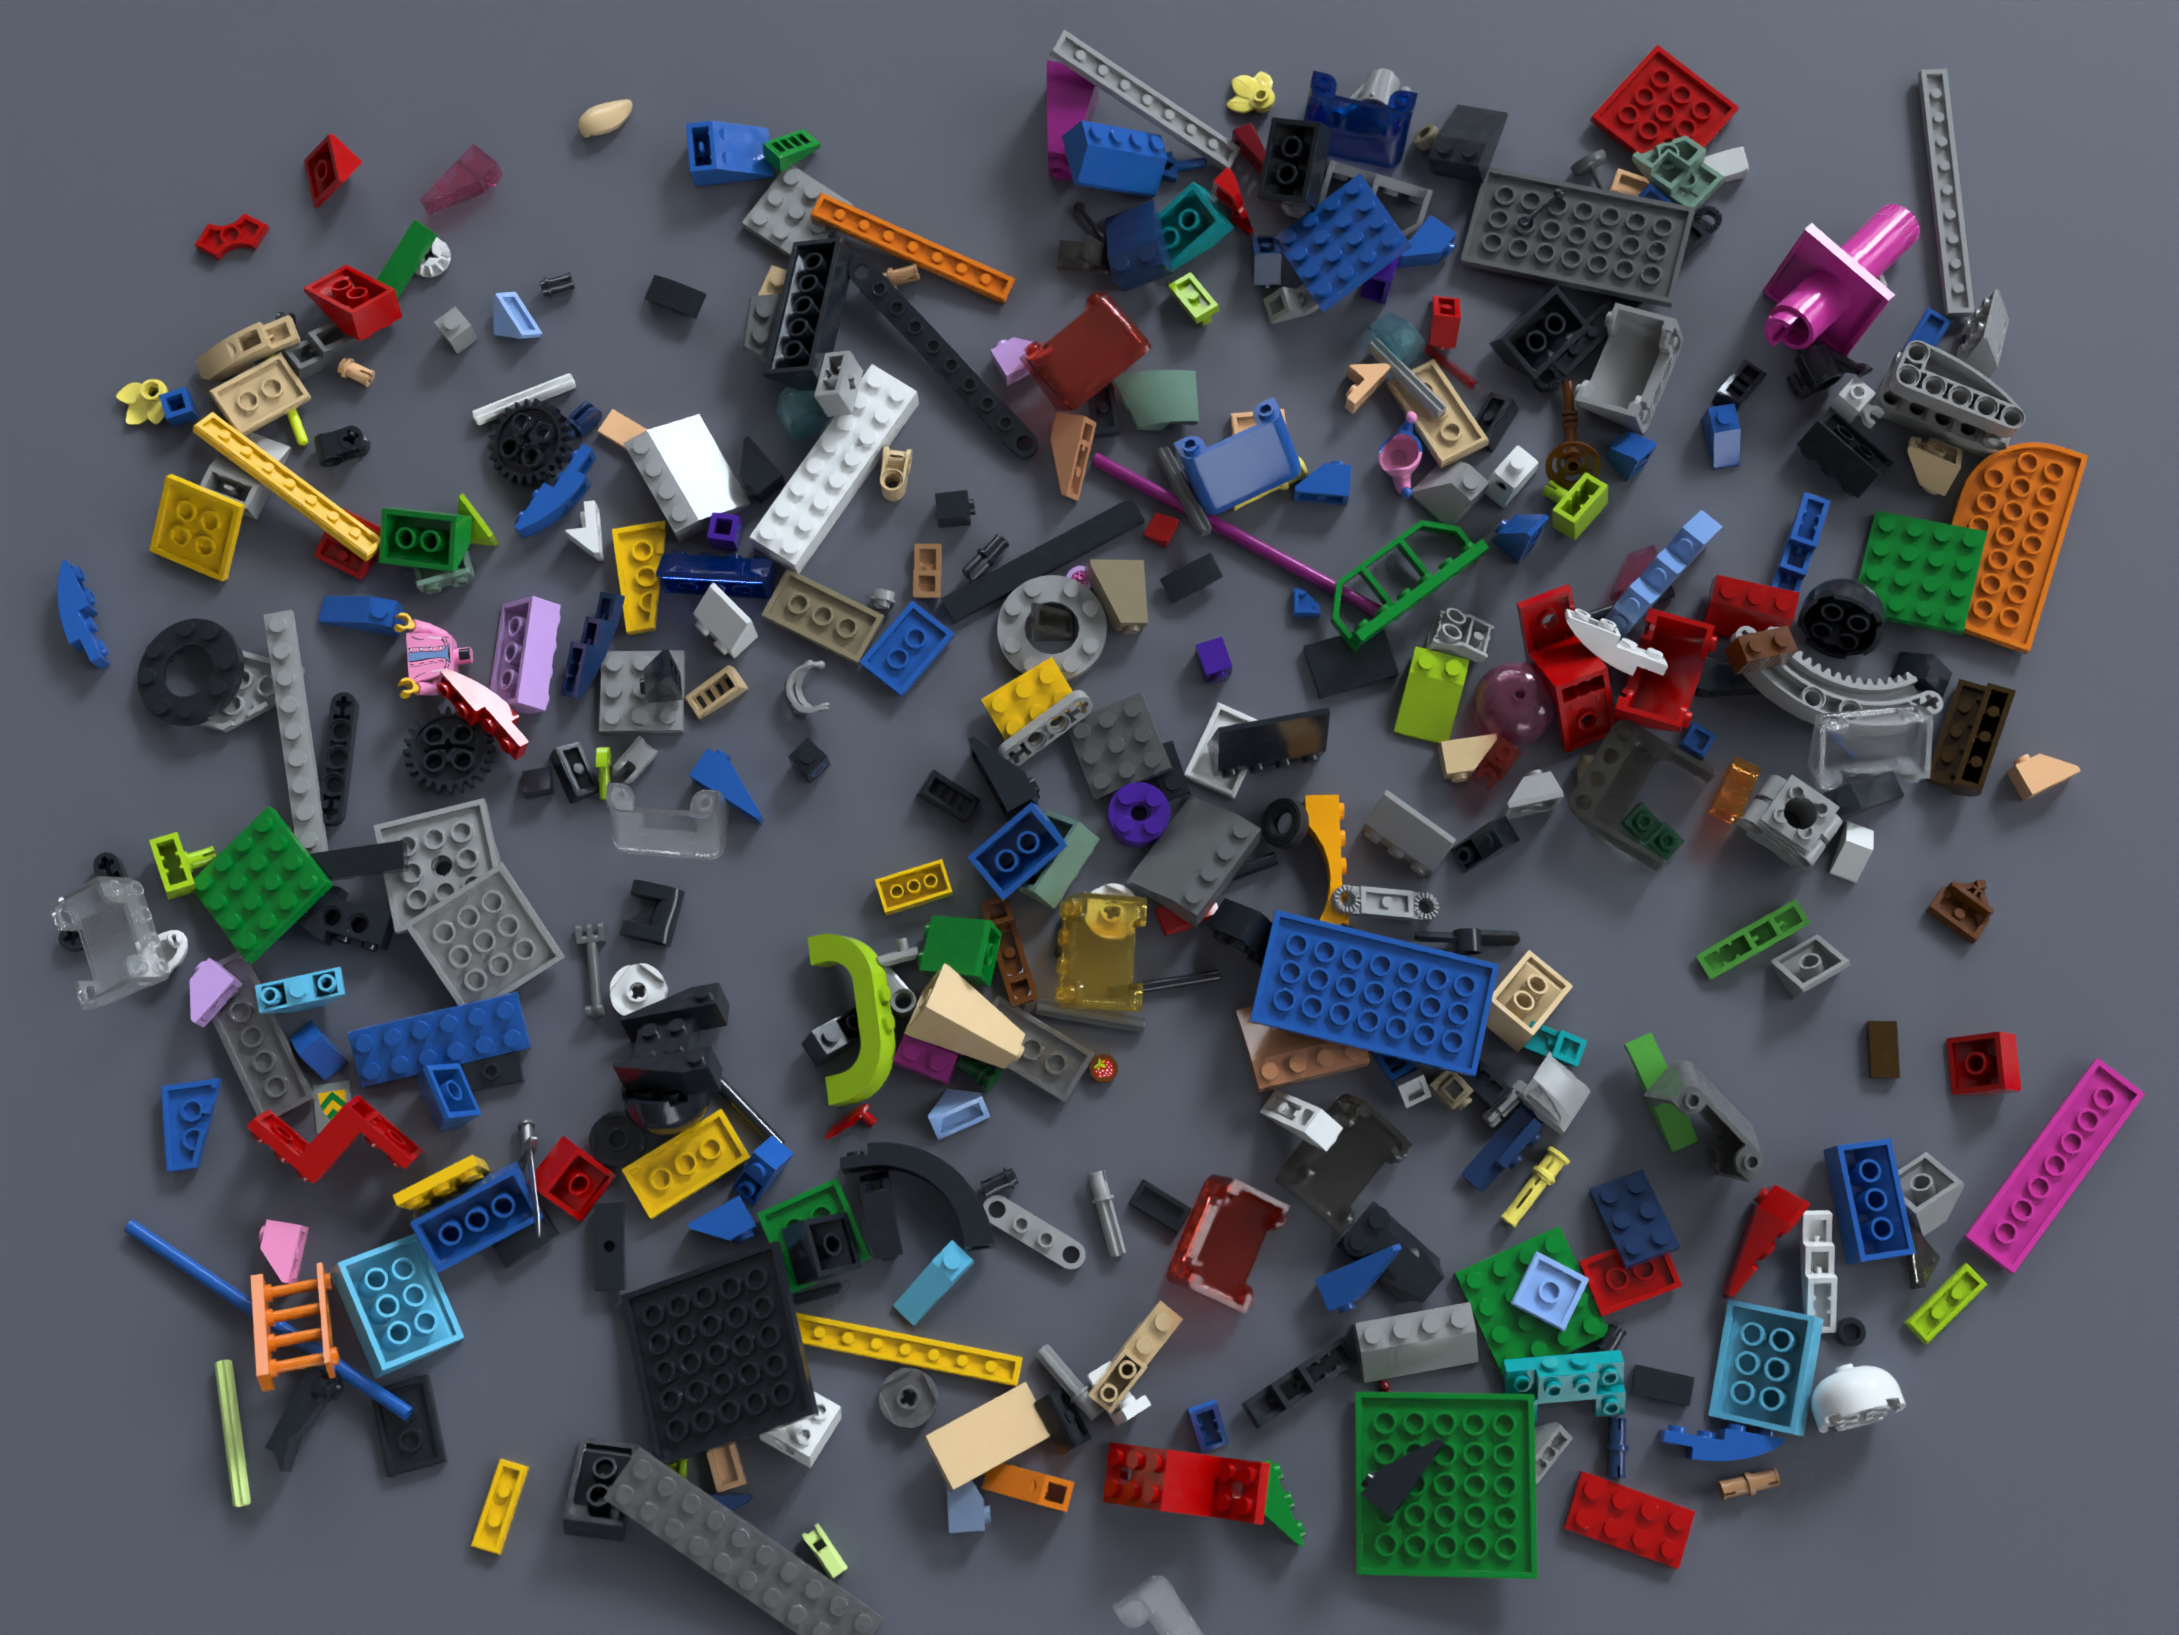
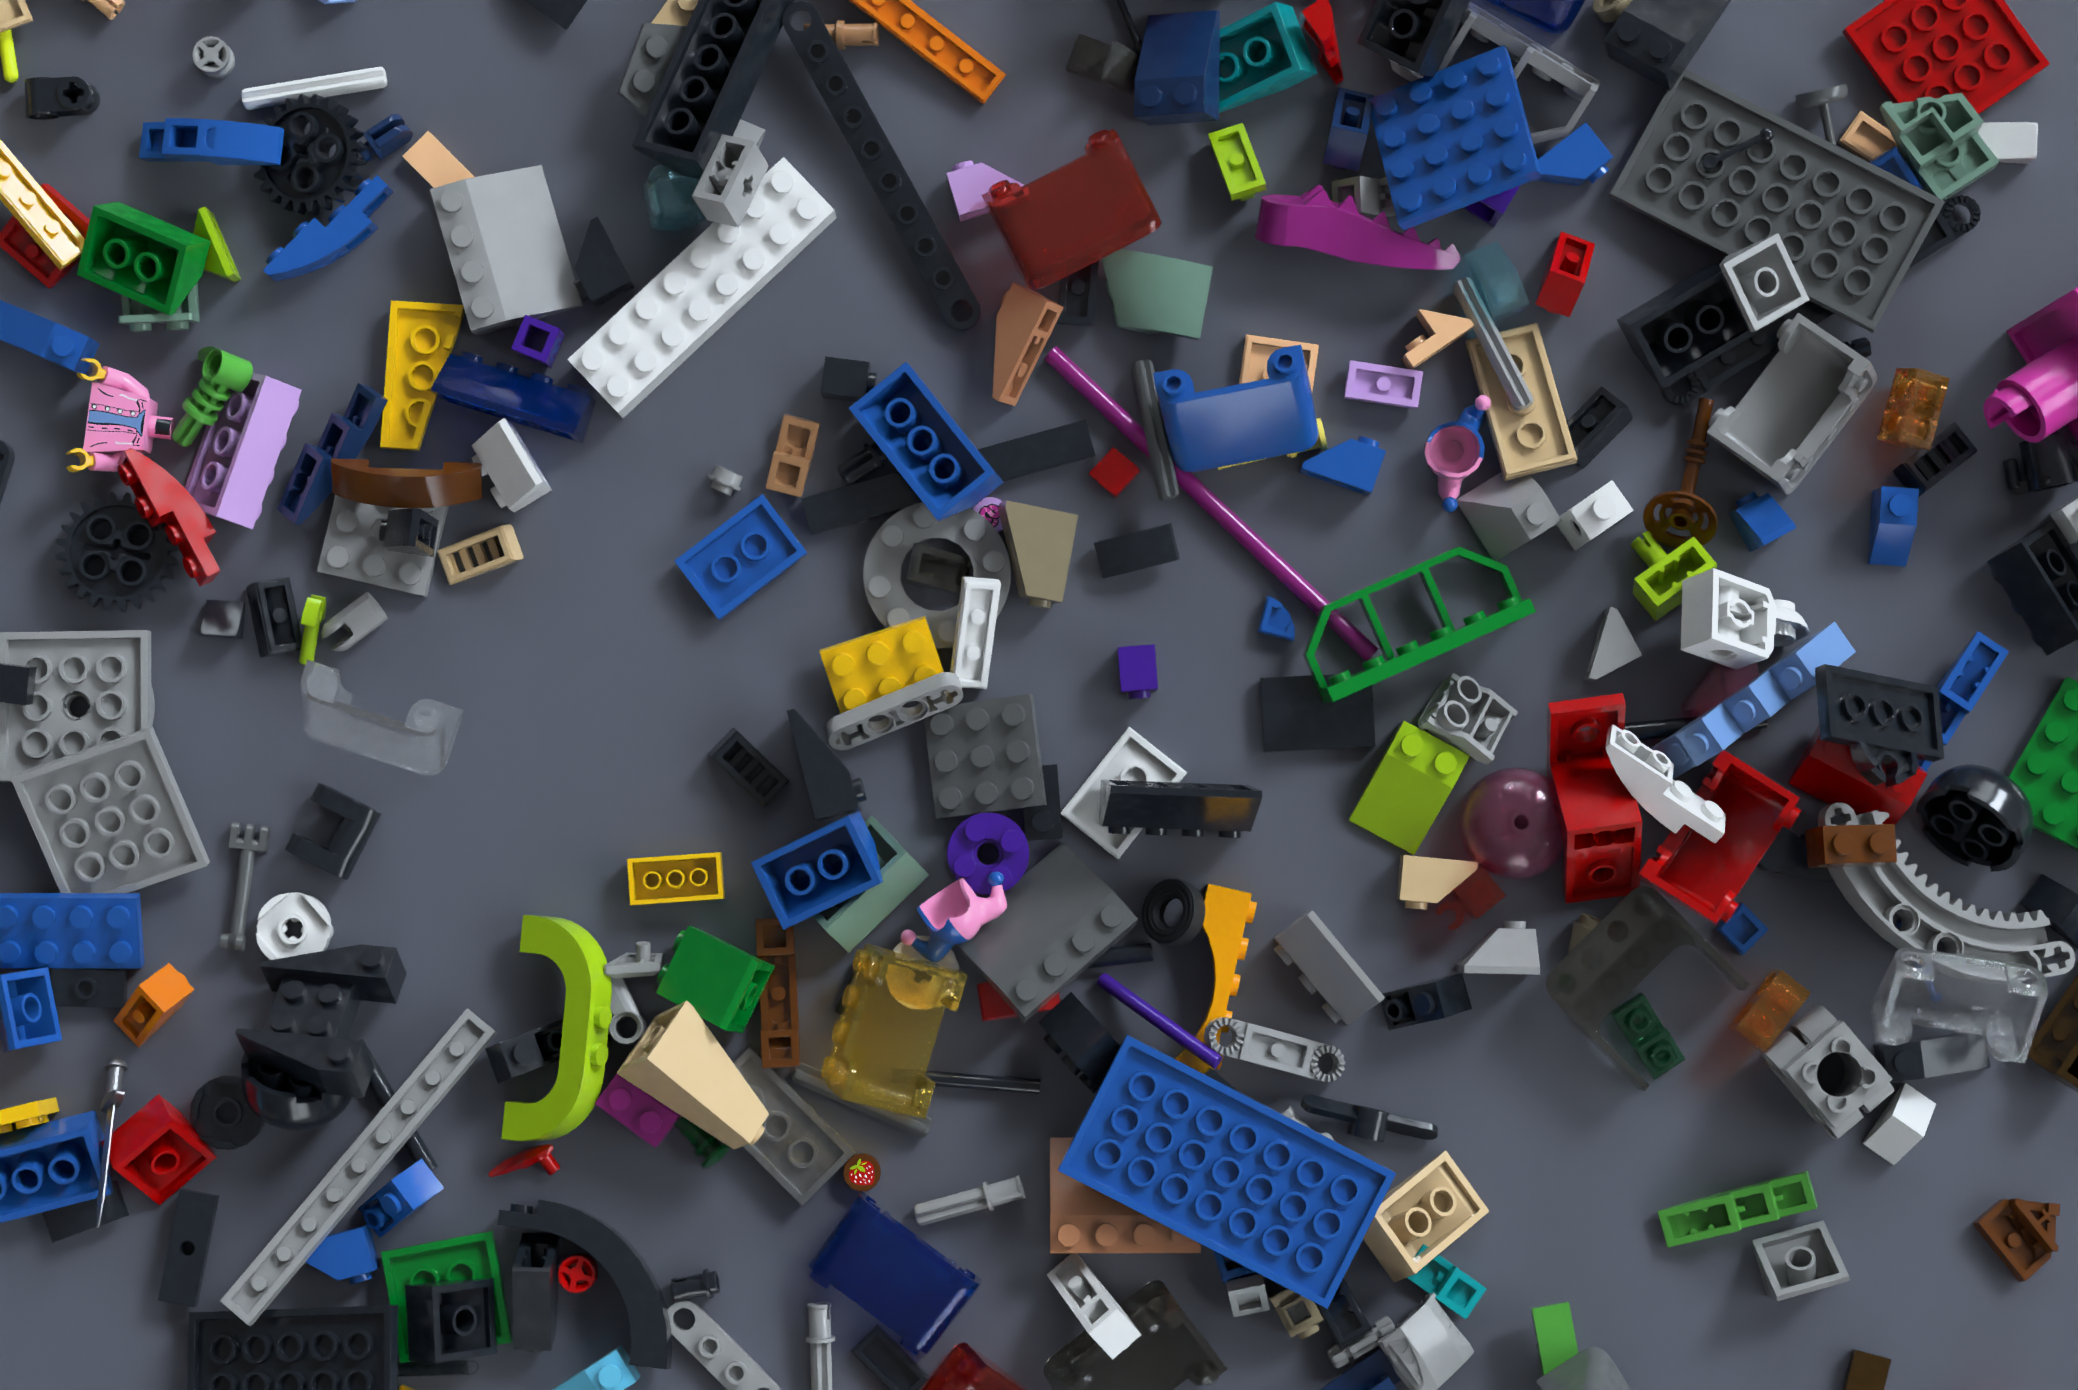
camera: 15 degrees right, 10 degrees up
(447, 387) = (208, 51): none -> light grey wheel
(457, 446) = (211, 141): none -> blue slope
(501, 603) = (220, 373): none -> bright green piece
(544, 1071) = (153, 1004): none -> orange slope
(590, 536) = (362, 305): white slope -> none
(637, 654) = (406, 487): none -> reddish brown slope
(686, 1164) = (286, 1169): yellow plate -> none
(717, 773) = (463, 678): blue slope -> none
(725, 1152) = (358, 1167): none -> light grey plate
(794, 689) = (581, 581): light grey helmet -> none
(809, 760) = (579, 678): black brick -> none
(823, 616) = (641, 486): dark tan plate -> none
(895, 468) = (784, 303): tan piece -> none
(906, 1190) = (575, 1279): none -> red wheel
(957, 1111) = (662, 1181): light blue slope -> none
(1023, 533) = (925, 444): none -> blue slope
(1090, 658) = (975, 631): none -> white tile
(1127, 860) = (955, 916): none -> bright pink piece
(1146, 1134) = (893, 1274): none -> clear blue windscreen
(1188, 1070) = (970, 1201): none -> light grey axle
(1279, 324) = (1341, 231): none -> magenta animal
(1295, 902) = (1159, 1020): none -> dark purple bar
(1336, 425) = (1383, 384): none -> lavender plate
(1460, 375) = (1559, 334): red piece -> none
(1519, 534) = (1581, 599): blue slope -> none
(1550, 564) = (1612, 646): none -> light grey slope
(1586, 287) = (1763, 281): none -> light grey slope
(1632, 518) = (1735, 620): none -> white brick
(1714, 353) = (1913, 408): none -> clear orange brick
(1758, 560) = (1879, 721): none -> black plate

